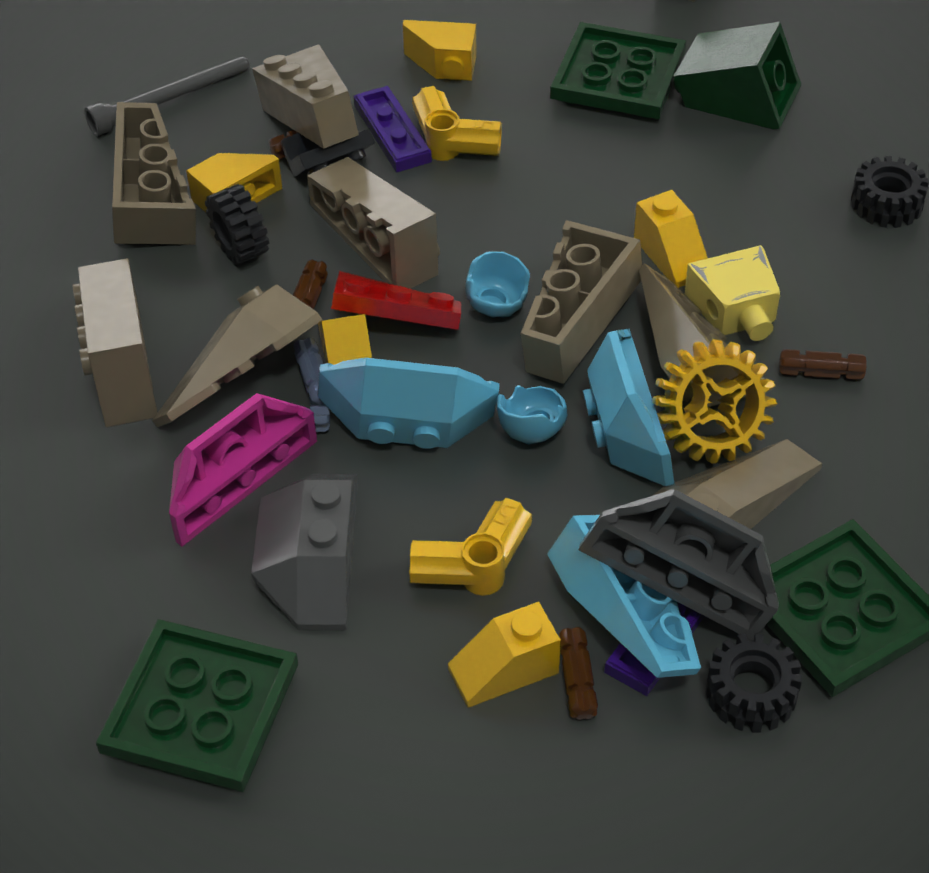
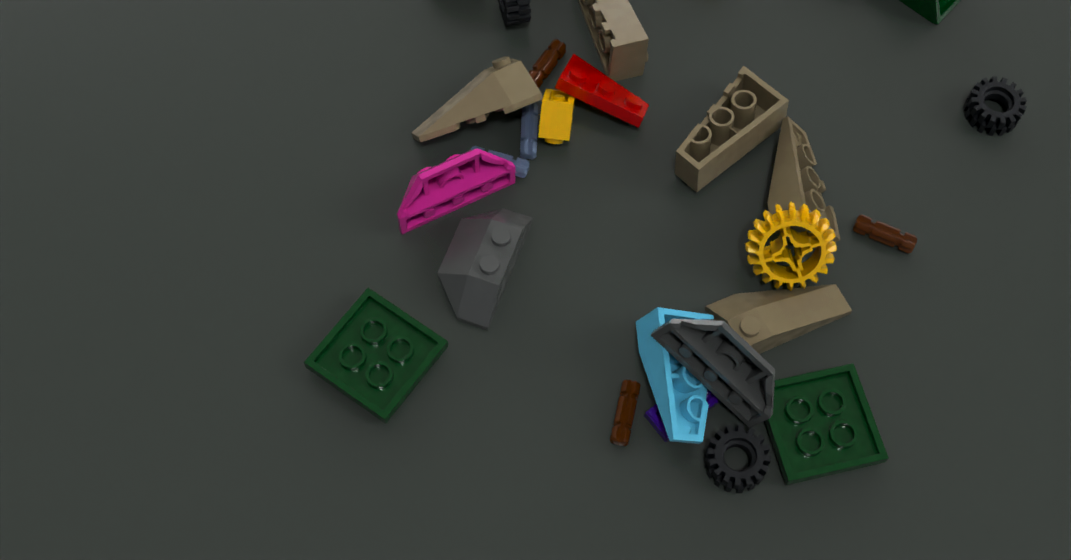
camera: 15 degrees right, 15 degrees up
(114, 342) = (402, 65): dark tan wedge -> none
(406, 400) = (581, 180): medium azure wedge -> none
(480, 559) = (603, 301): yellow piece -> none
(497, 284) = (678, 100): medium azure hair -> none
(507, 655) = (582, 386): yellow slope -> none
(532, 413) = (665, 210): medium azure hair -> none
(626, 411) = (728, 229): medium azure wedge -> none
(669, 235) = (817, 99): yellow slope -> none
(735, 292) = (846, 157): light yellow torso -> none

